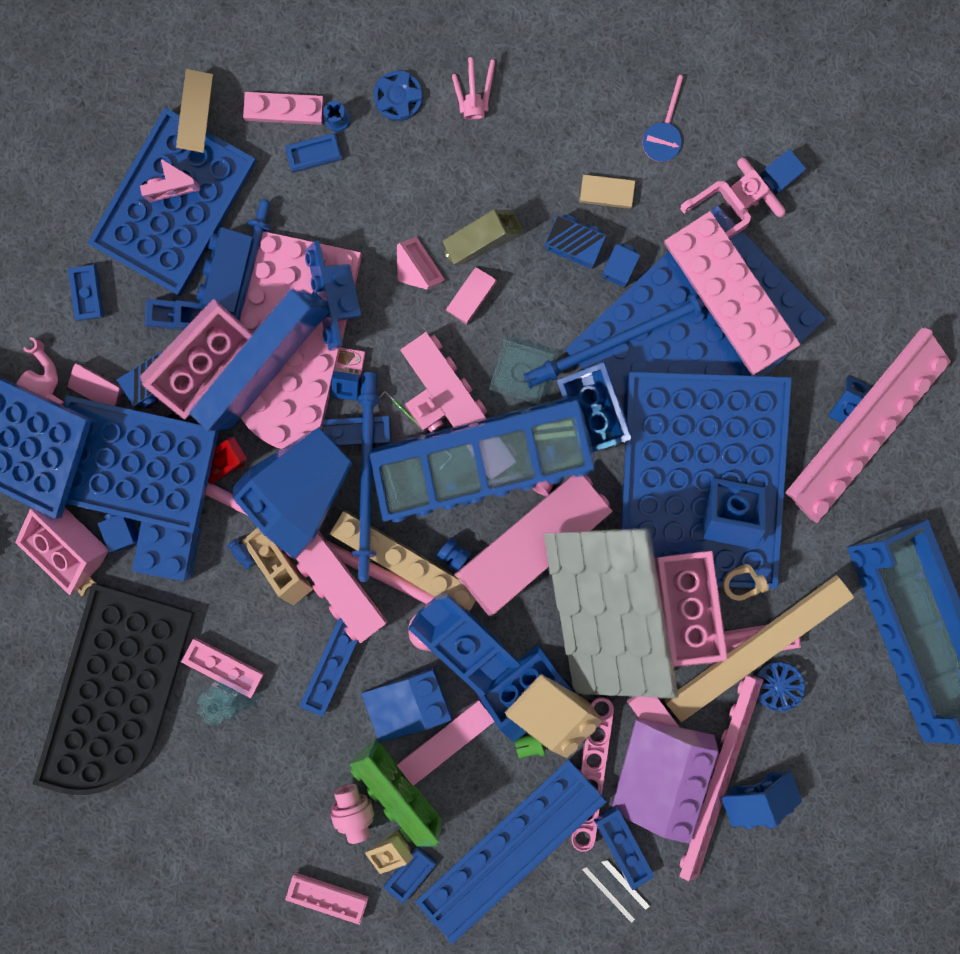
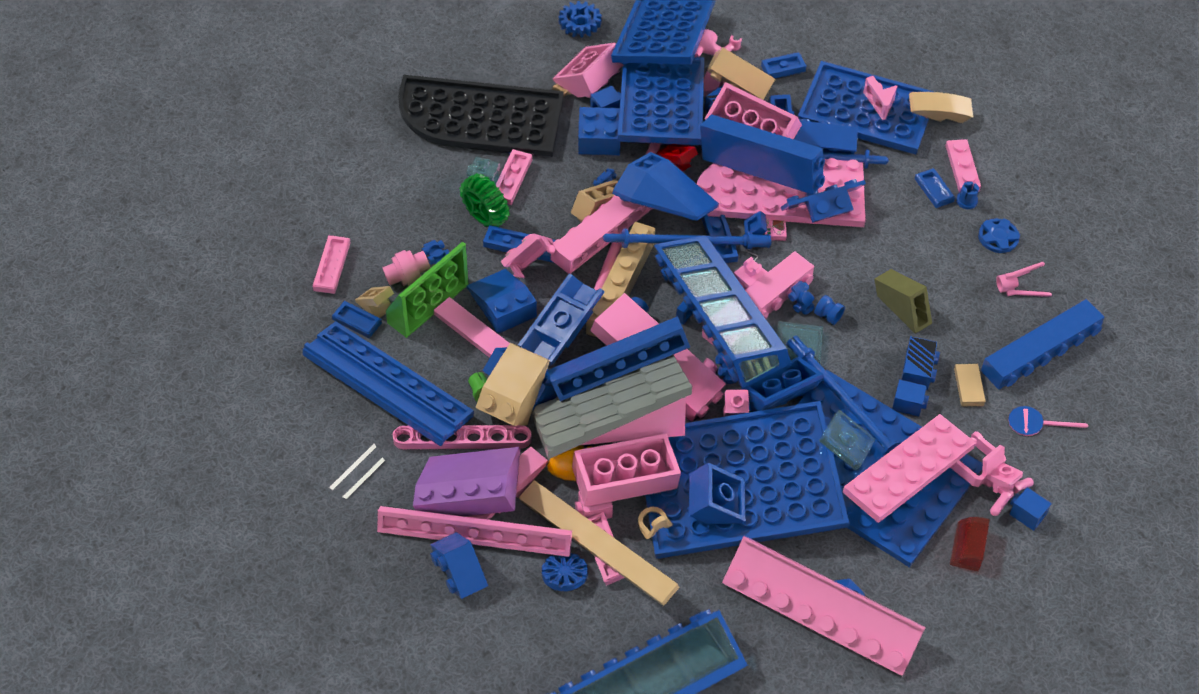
camera: 75 degrees right, 35 degrees down
(108, 357) = (739, 73): none -> tan slope
(267, 710) = (484, 200): none -> green gear
(333, 770) = (434, 251): none -> blue piece
(359, 671) = (526, 253): none -> bright pink piece
(416, 266) = (867, 262): bright pink slope -> none
(463, 354) = (803, 298): none -> blue piece
(471, 295) = (853, 303): bright pink slope -> none
(483, 326) = (829, 310): none -> blue wheel
(552, 594) = (618, 358): none -> blue brick
(569, 90) = (1042, 344): none -> blue brick
(609, 465) = (736, 402): none -> bright pink bracket
(624, 848) = (399, 465): blue plate -> none
(682, 353) = (847, 440): none -> clear light blue tile
(812, 249) = (970, 543): none -> clear red brick

